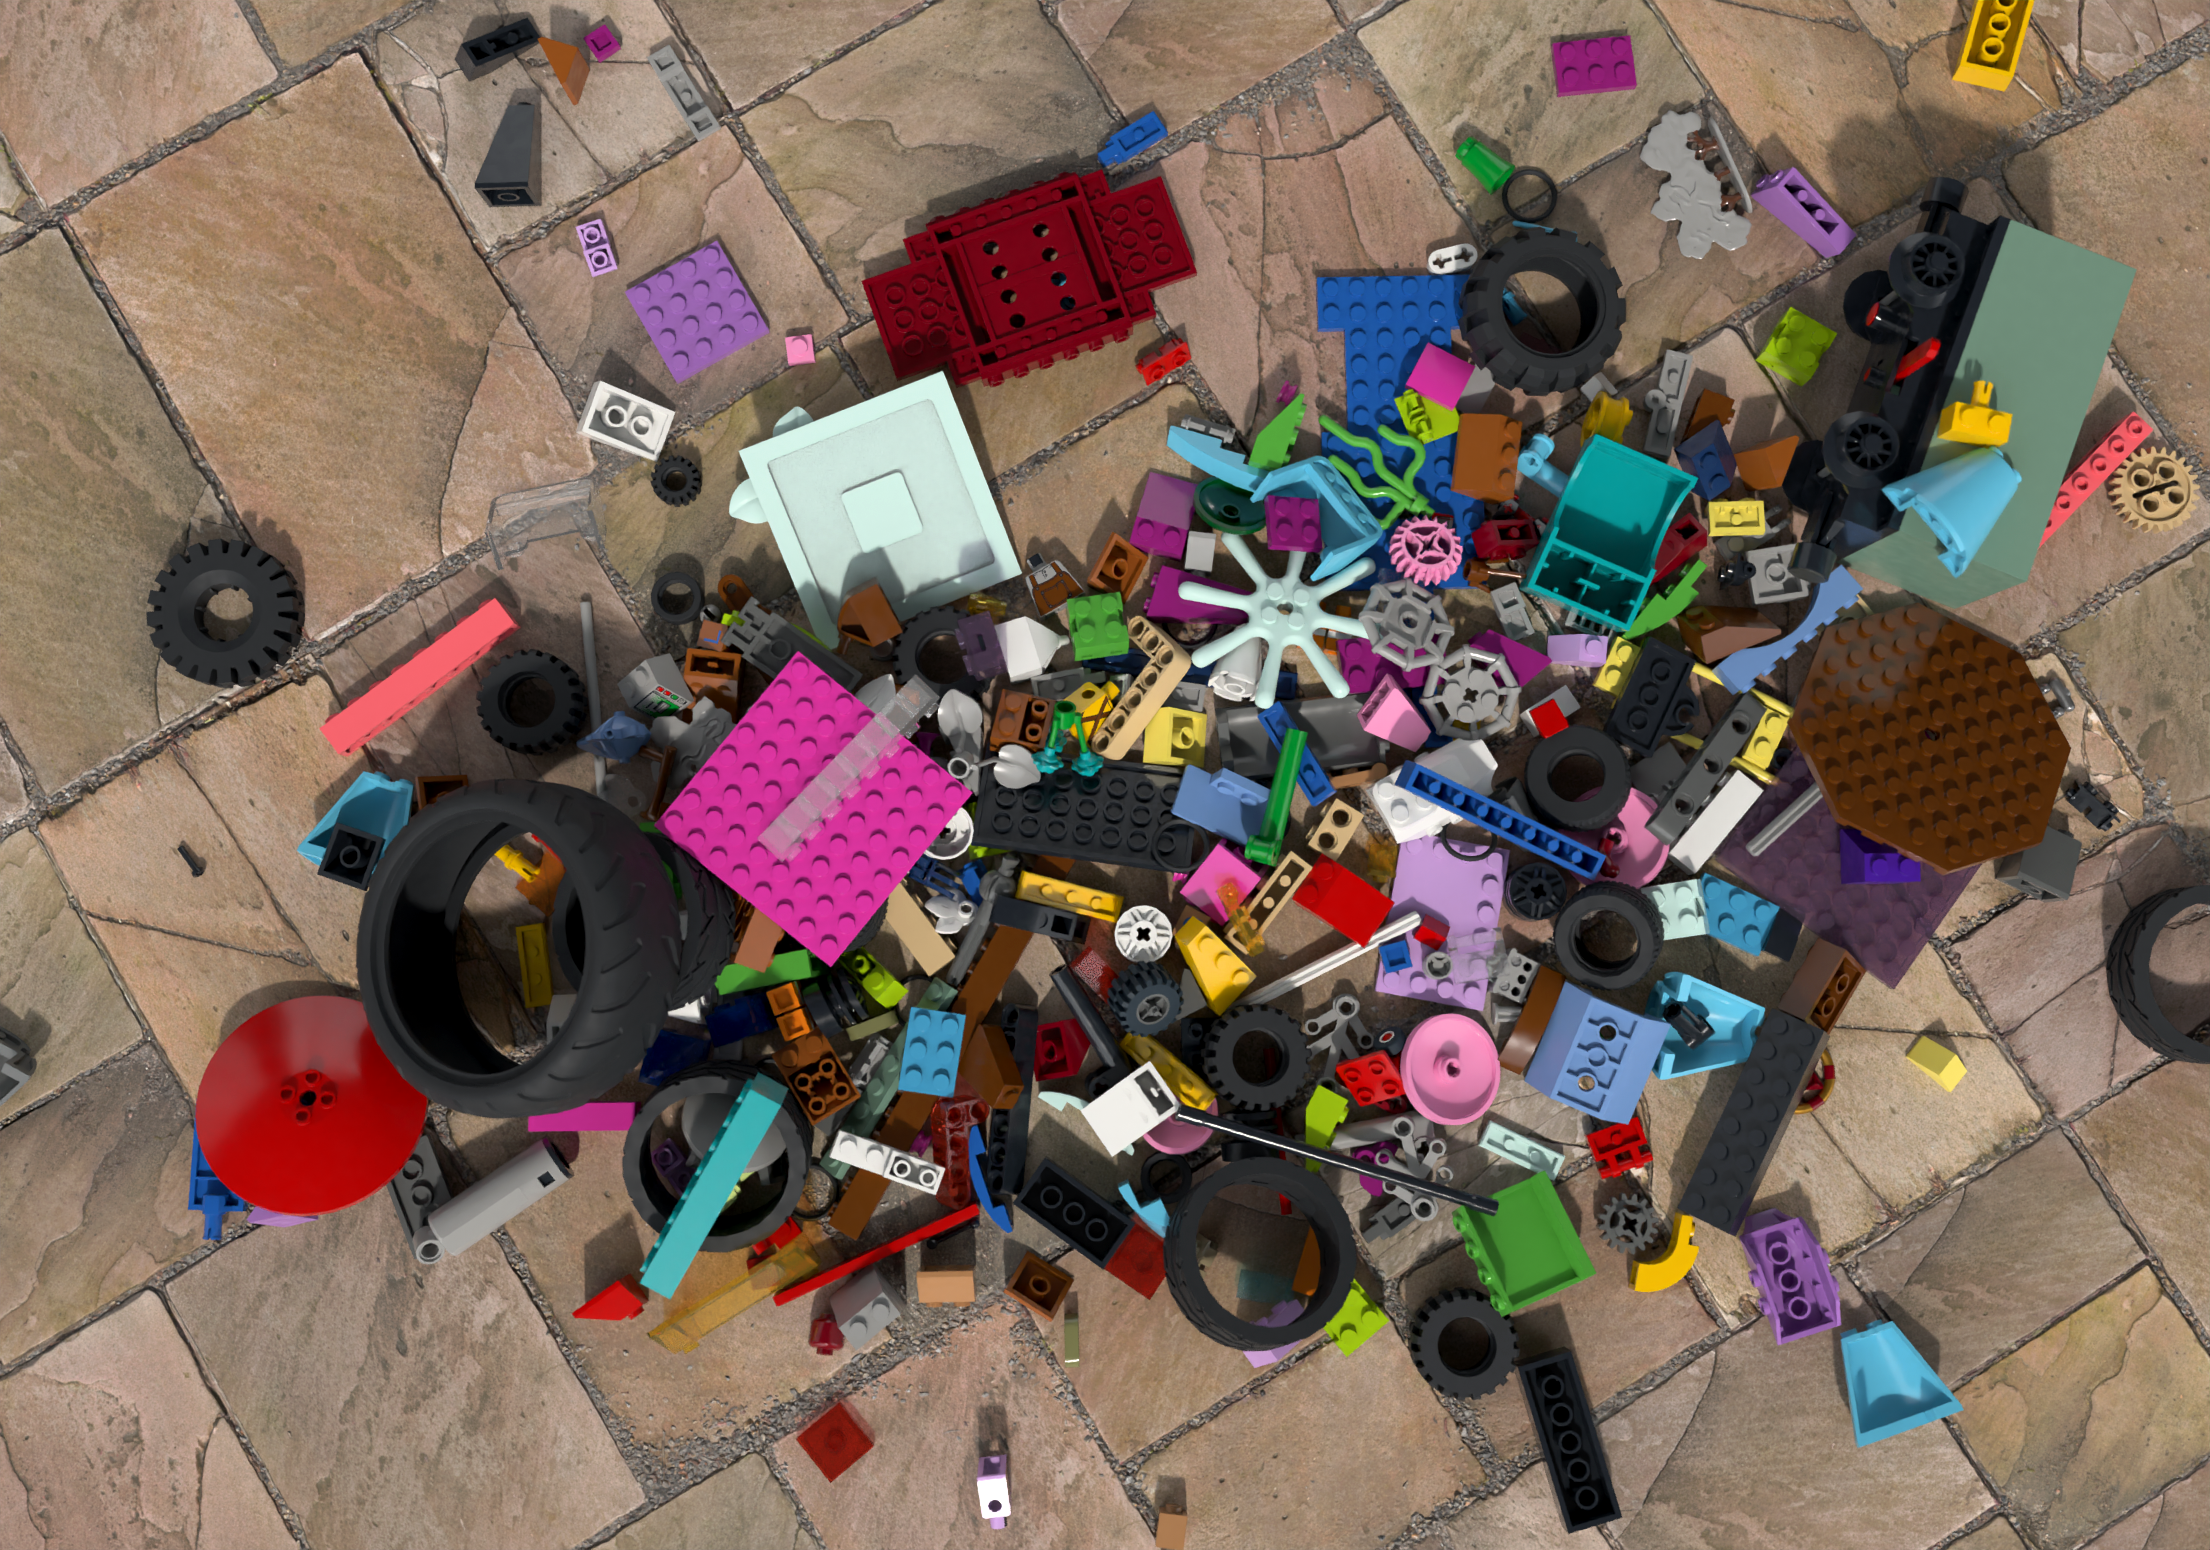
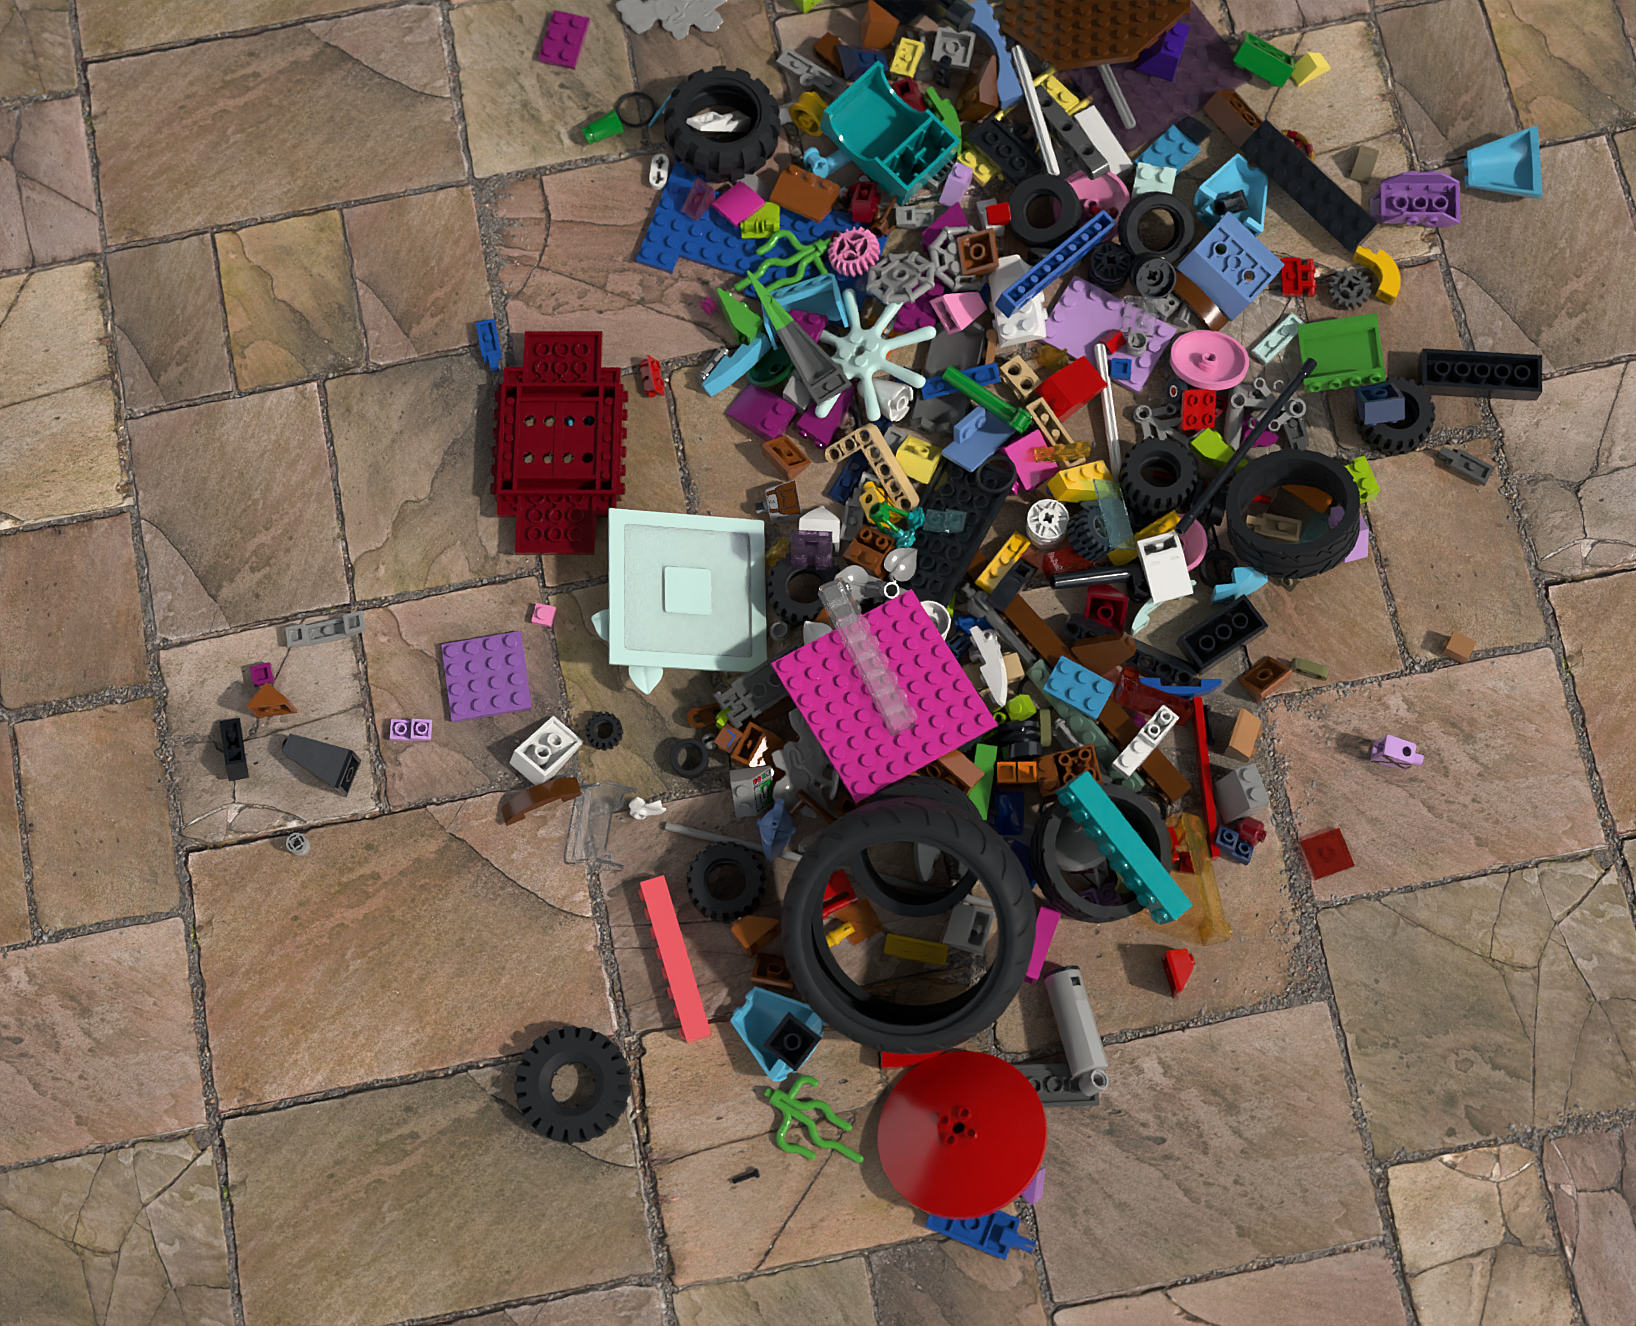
camera: 65 degrees left, 10 degrees down
(287, 883) = (789, 1106): none -> bright green plant
(412, 176) = (299, 848): none -> light grey wheel
(469, 756) = (754, 933): none -> dark orange slope
(563, 437) = (538, 796): none -> reddish brown slope
(591, 565) = (640, 809): none -> white plate
(799, 1314) = (1228, 843): none -> dark blue slope
(866, 616) = (755, 624): reddish brown piece -> none
(912, 938) = (994, 667): none -> white slope
(1094, 802) = (948, 522): none -> clear light blue slope
(1097, 626) = (822, 480): bright green piece -> none
(1139, 1261) = (1273, 604): clear red plate -> none
(1178, 1018) = (1114, 514): none -> clear light blue piece
(1236, 561) = (817, 371): none -> dark grey plate
(1252, 1233) = (1275, 526): none -> tan hinge
(1424, 324) = (699, 199): none -> clear pink slope
(1432, 1460) = (1466, 464): none -> dark grey hinge
(1463, 1319) = (1380, 403): none -> dark blue slope
(1464, 857) = (1071, 299): black tyre -> none
(1480, 711) = (978, 253): none -> dark orange slope
(1522, 960) = (1162, 278): none -> black wheel
(1535, 300) = (714, 122): none -> white slope
(1720, 715) = (1035, 110): none -> white axle
(1822, 1185) = (1364, 164): none -> dark tan slope
(1923, 997) = (1263, 59): none -> green slope

